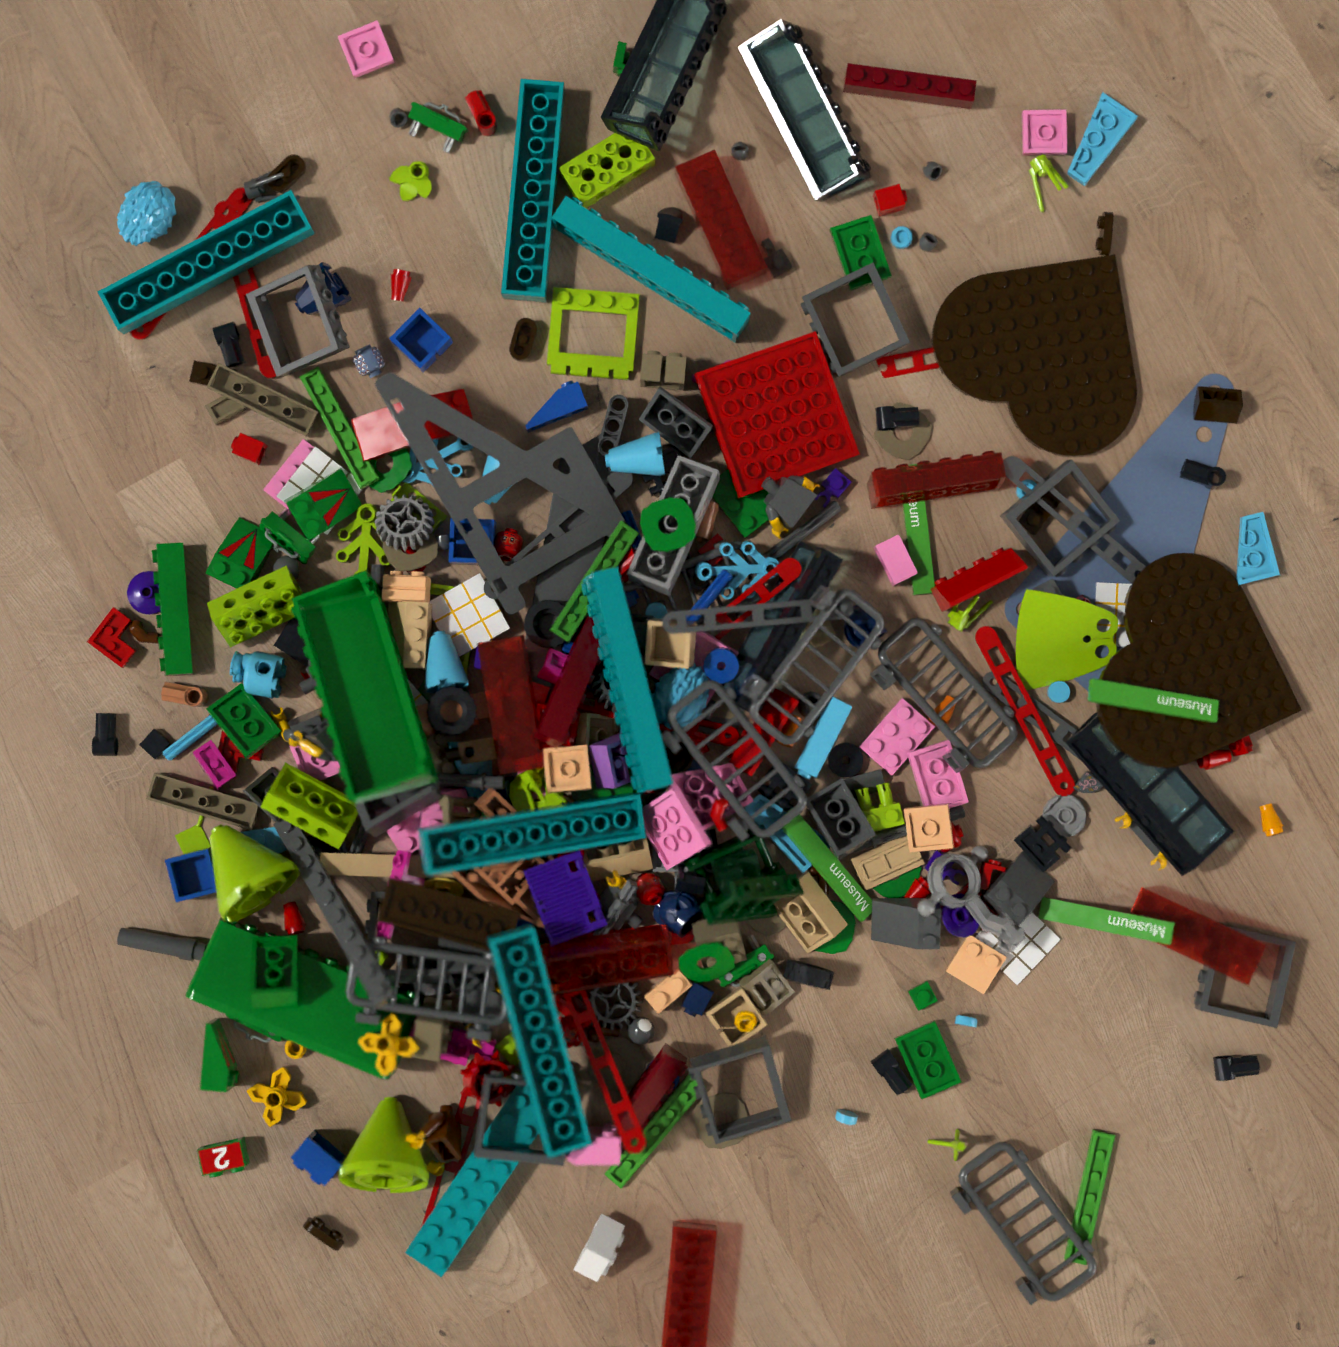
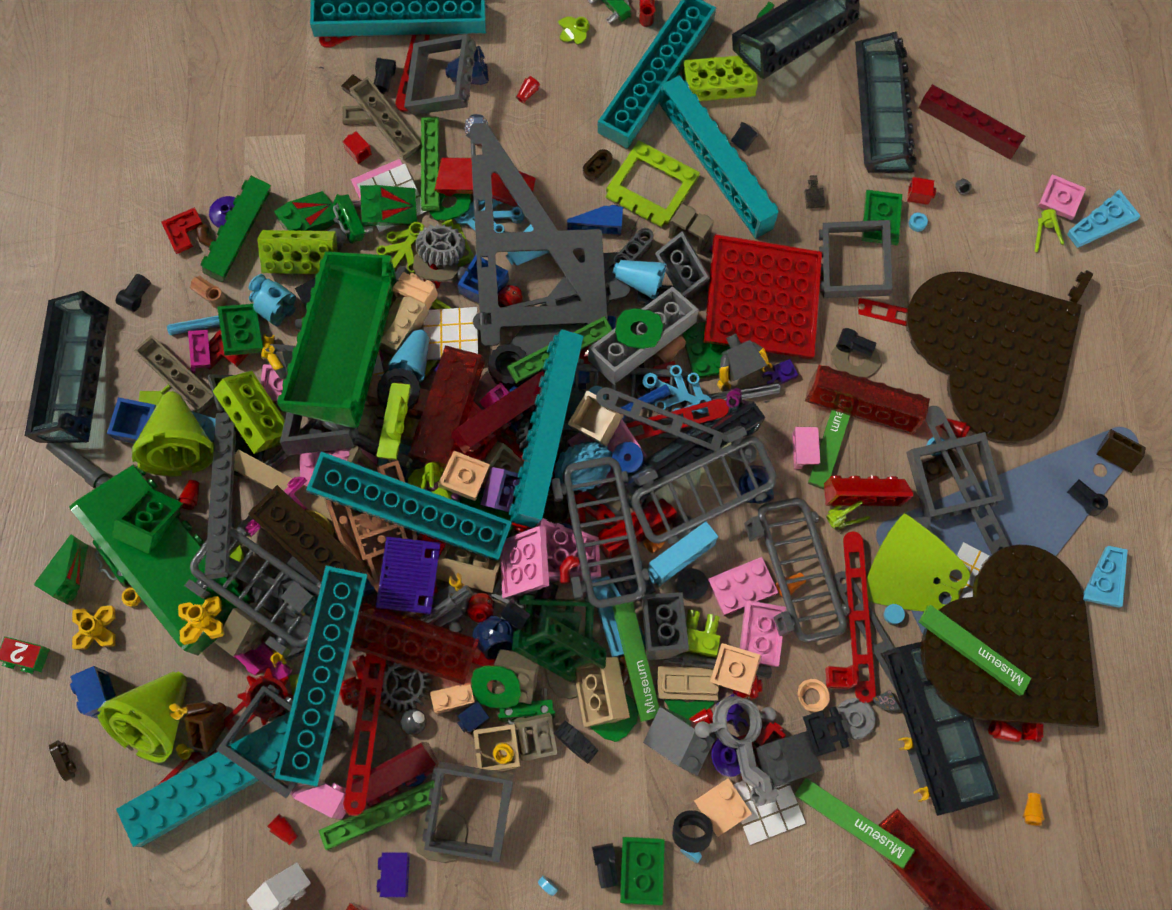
camera: 25 degrees right, 15 degrees down
(90, 853) = (67, 370): none -> black window
(155, 744) = (165, 317): black tile -> none
(421, 340) = (522, 129): blue piece -> none
(468, 751) = (394, 421): none -> lime bracket
(477, 980) = (299, 599): none -> dark grey brick
(569, 1190) = (282, 829): none -> red cone
(698, 1179) = (394, 874): none -> dark purple brick
(720, 219) = (786, 149): clear red brick -> none
(740, 154) = (823, 112): dark grey hinge -> none
(799, 547) = (733, 397): none -> magenta pin
(865, 780) = (702, 606): dark grey slope -> none
(922, 995) = (663, 812): green plate -> none
(928, 242) = (937, 232): dark grey hinge -> none
(954, 987) = (692, 818): none -> black tyre
(1026, 817) = (822, 690): none -> light nougat piece
(1034, 782) = (841, 677): none -> red bracket
(1040, 462) = (959, 428): none -> red cone

